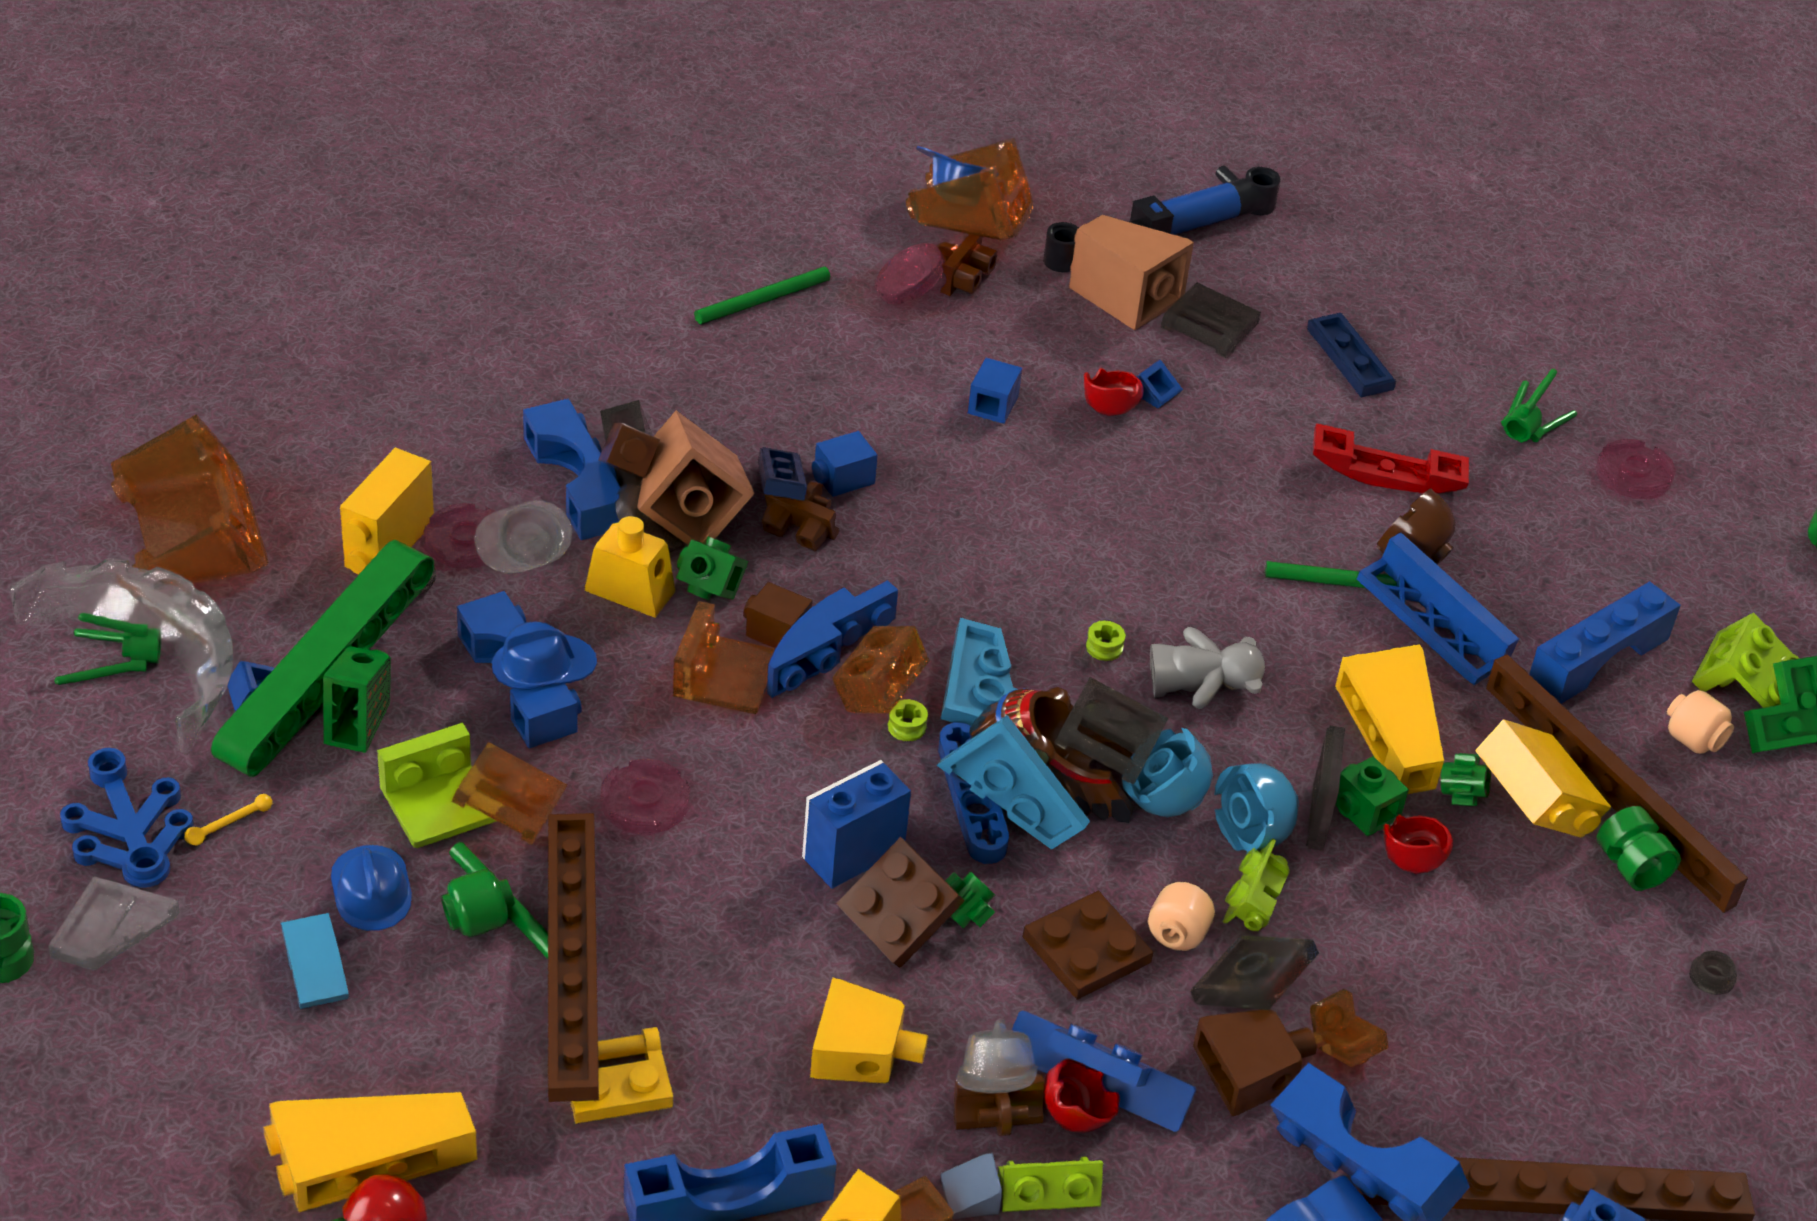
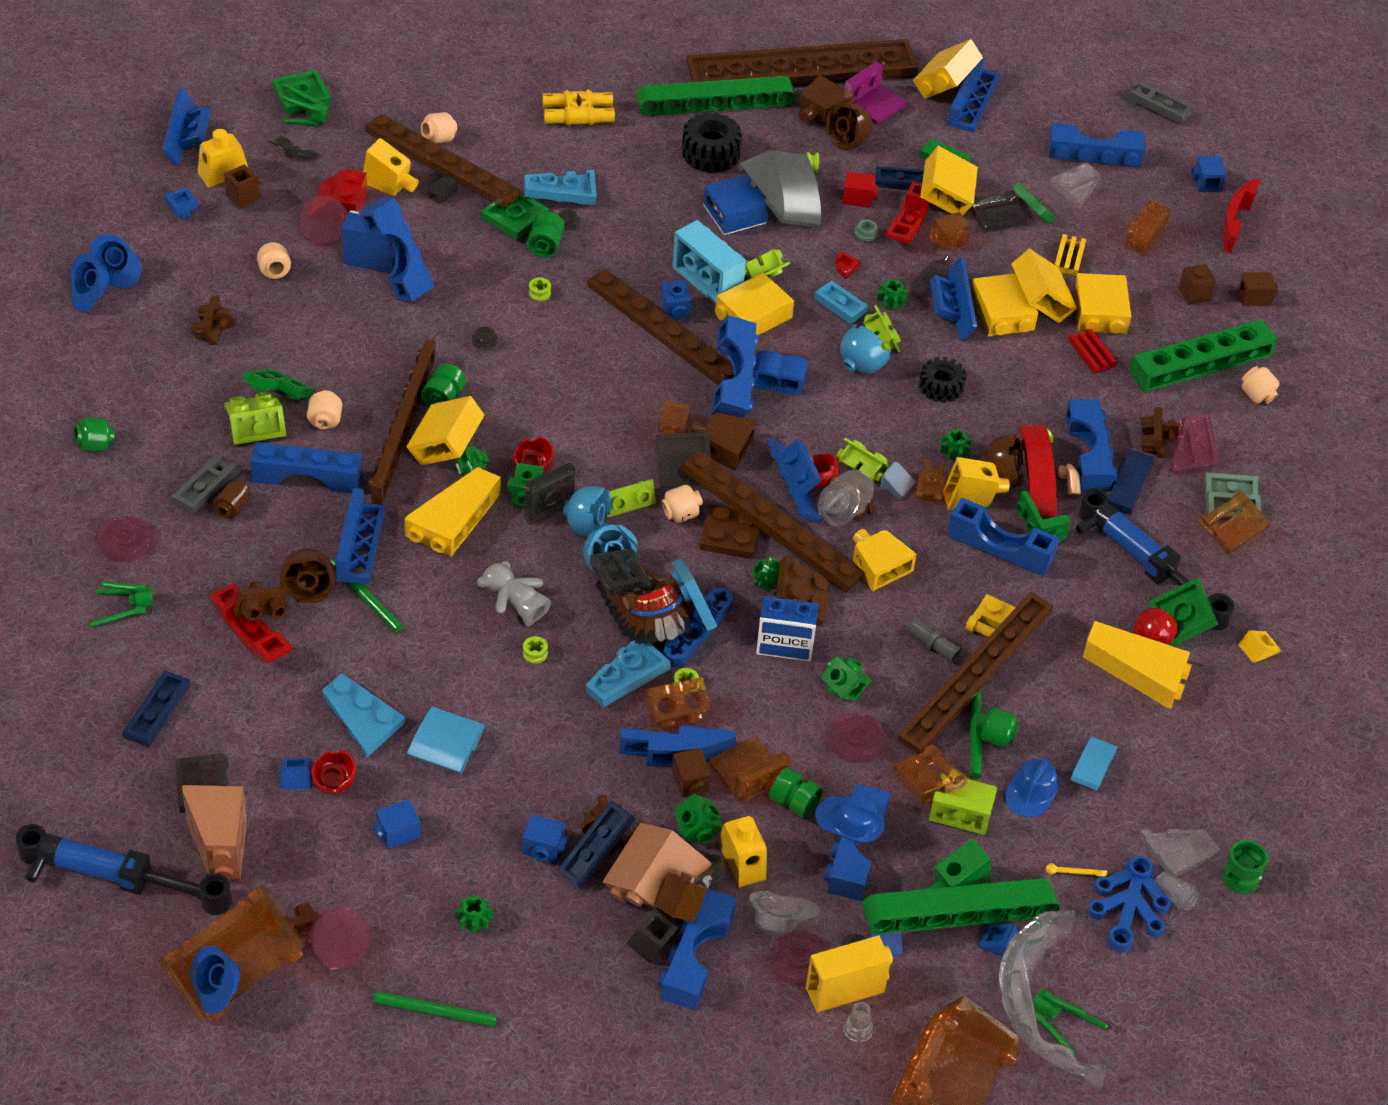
camera: 135 degrees left, 5 degrees up
(71, 866) = (1180, 892): none -> clear cone
(333, 493) = (859, 1025): none -> clear cone
(655, 666) = (793, 792): none -> green wheel
(676, 976) = (934, 640): none -> dark grey pin
(711, 837) = (845, 678): none -> green brick
(824, 366) = (473, 913): none -> green gear
(1056, 969) = (773, 521): none -> reddish brown plate
(1062, 493) = (445, 740): none -> dark azure slope
(1175, 469) = (362, 713): none -> dark azure wing
(1412, 458) = (260, 600): none -> reddish brown hips
(1613, 564) = (231, 499): none -> reddish brown brick
(1665, 562) = (205, 483): none -> dark grey plate
(1778, 1098) = (539, 295): none -> lime bush

